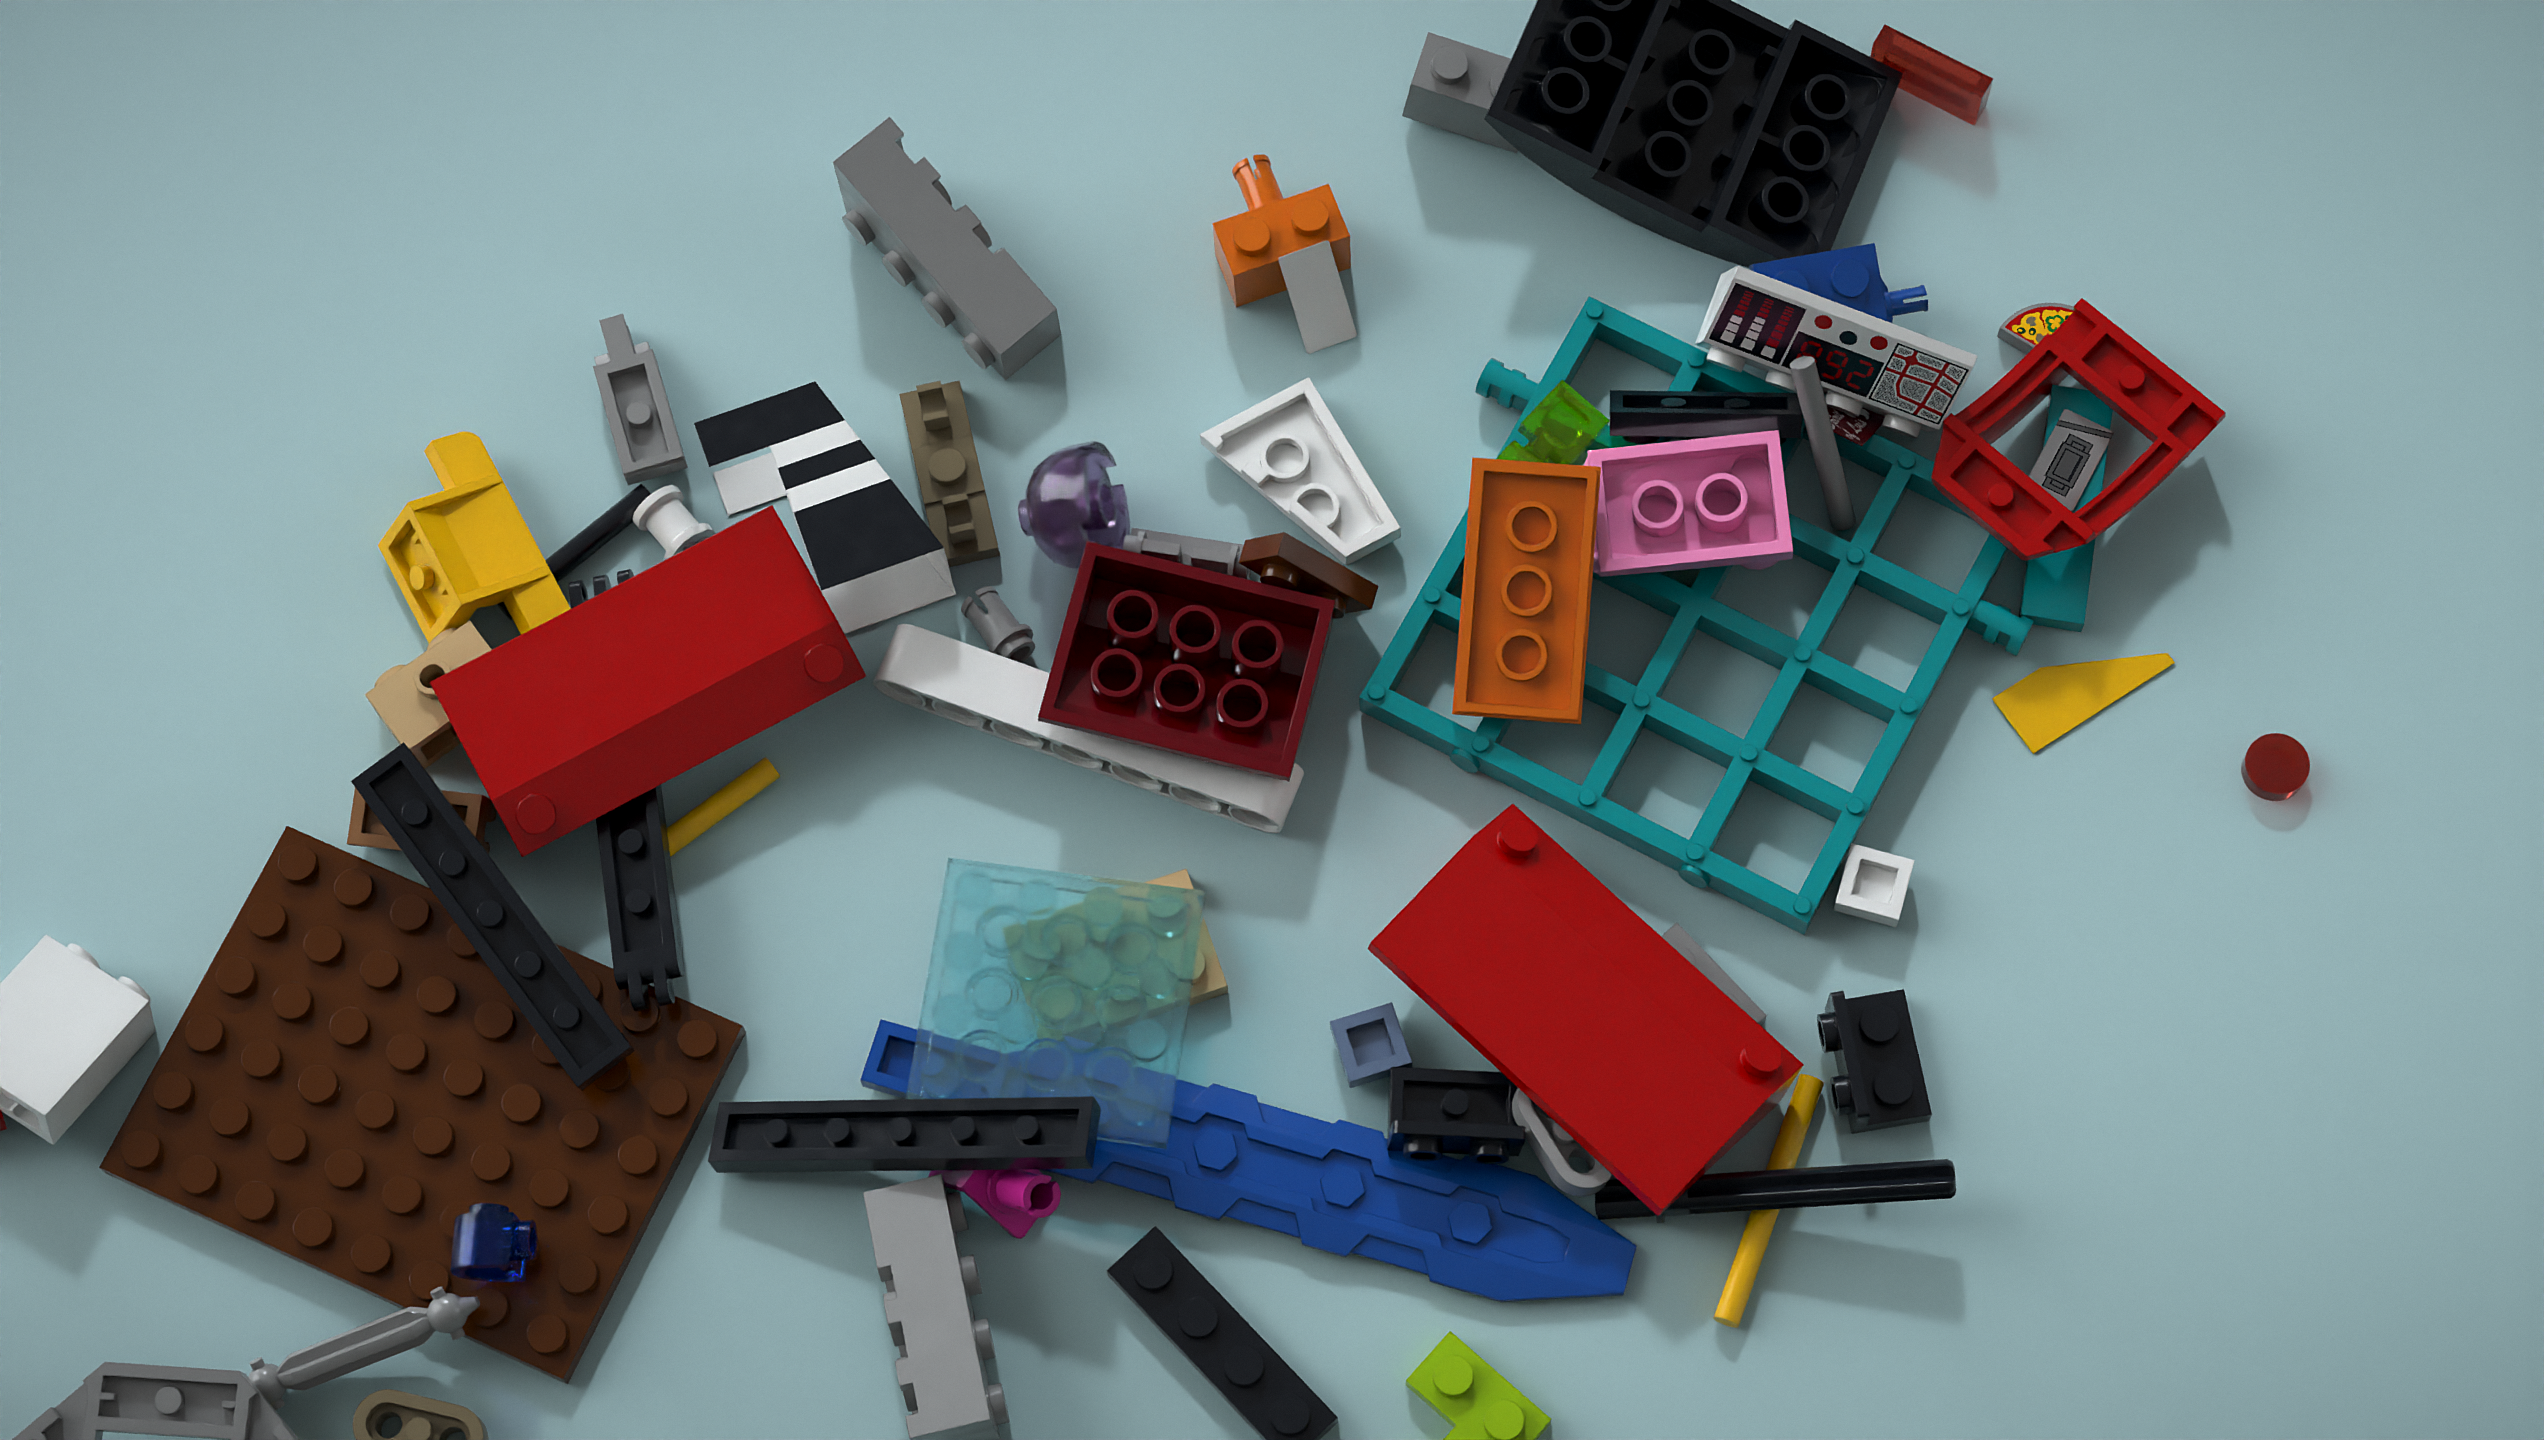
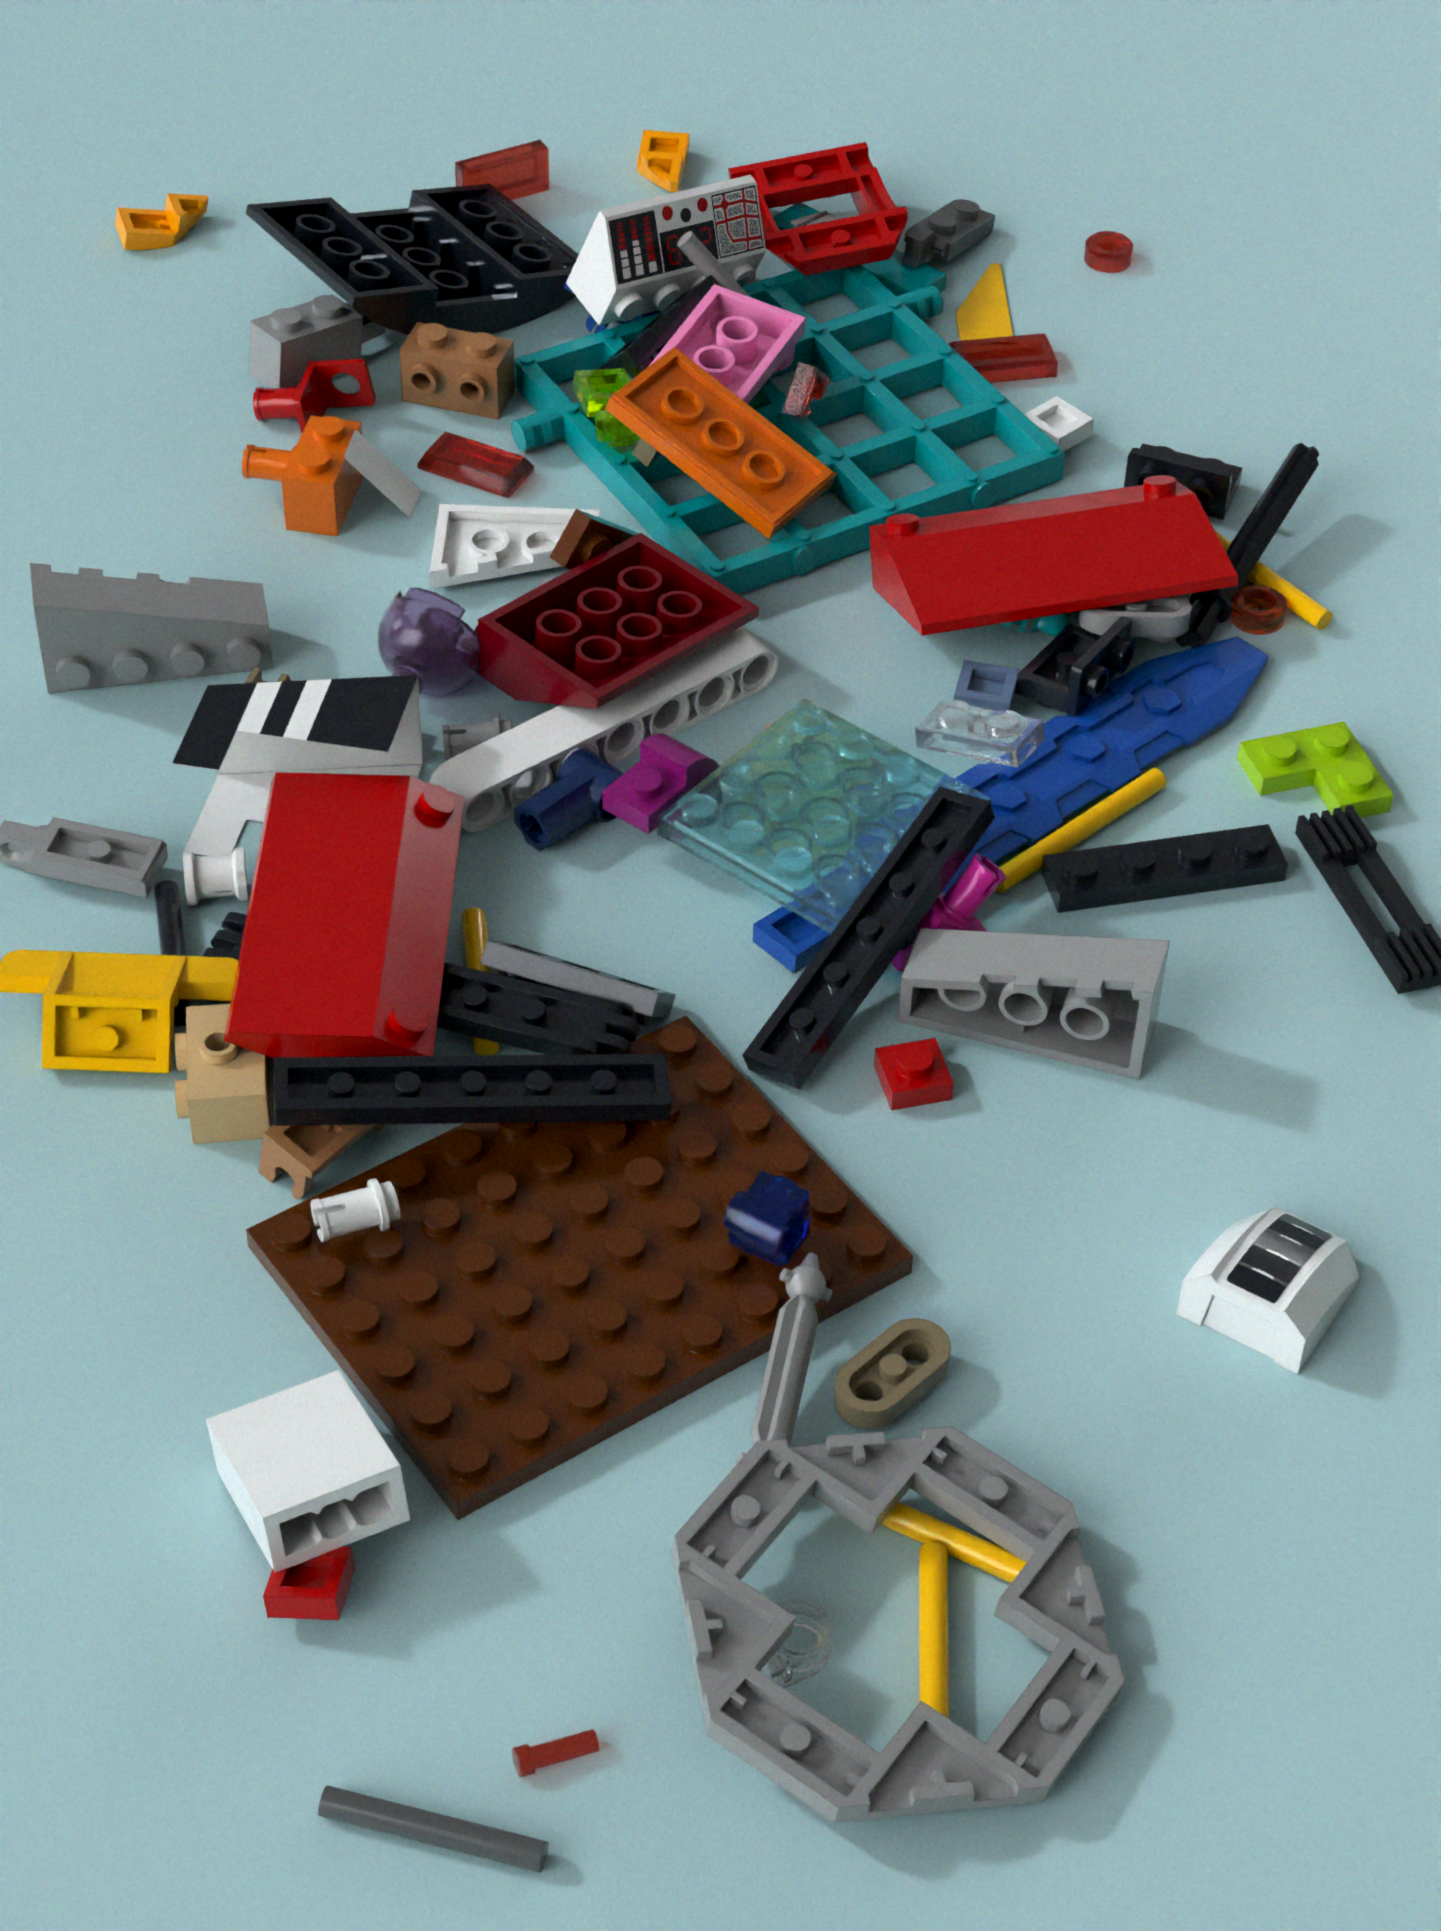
camera: 65 degrees left, 25 degrees down
(333, 911) = (356, 1210): none -> white pin
(726, 909) = (524, 964): none -> plate
(798, 1260) = (913, 1074): none -> red plate
(980, 765) = (567, 801): none -> dark blue piece
(1004, 831) = (656, 782): none -> magenta brick
(1228, 1237) = (1082, 827): none -> yellow bar
(1296, 1075) = (980, 733): none -> clear plate
(1401, 150) = (315, 392): none -> red bracket
(1424, 363) = (476, 464): none -> clear red tile
(1537, 254) = (457, 370): none -> medium nougat brick
(1700, 1246) = (1258, 610): none -> clear red tile
(1702, 609) = (806, 384): none -> clear red tile
(1976, 764) = (1009, 357): none -> clear red tile
(2104, 209) = (664, 158): none -> light orange slope
(2164, 580) = (947, 232): none -> dark grey hinge

